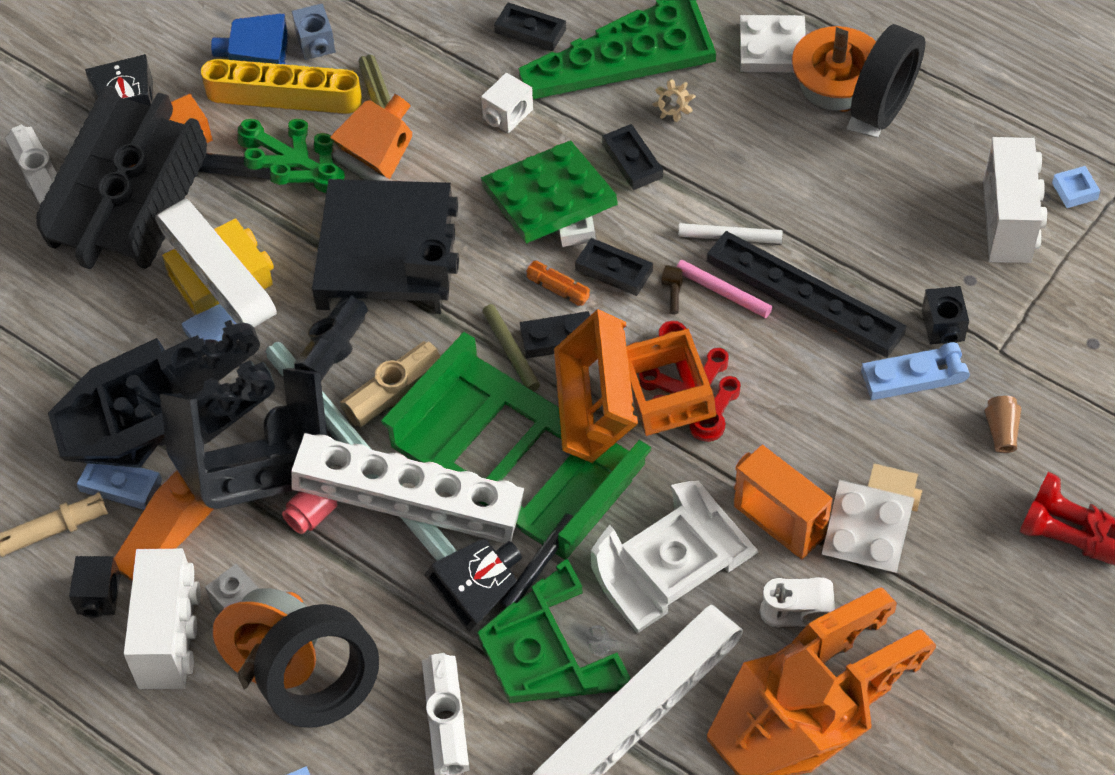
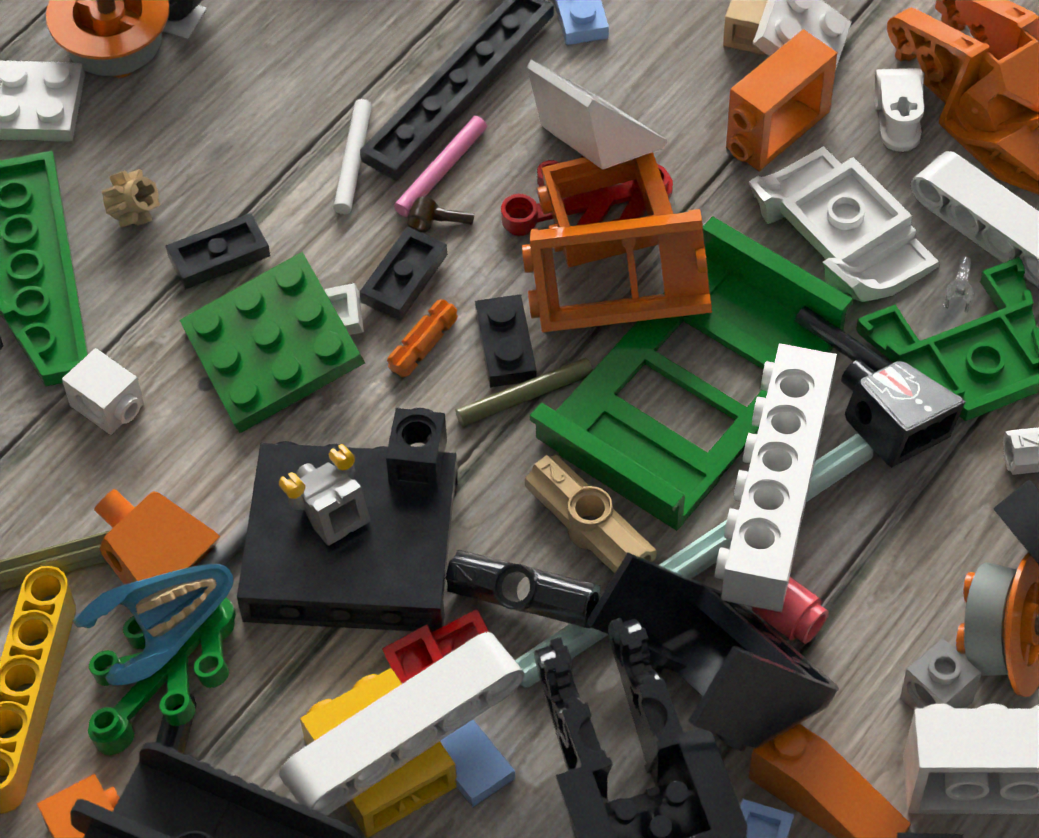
camera: 90 degrees left, 0 degrees up
(293, 304) = (423, 647): none -> red slope
(323, 146) = (166, 610): none -> dark azure animal
(390, 213) = (329, 495): none -> light grey piece
(741, 357) = (588, 121): none -> white slope

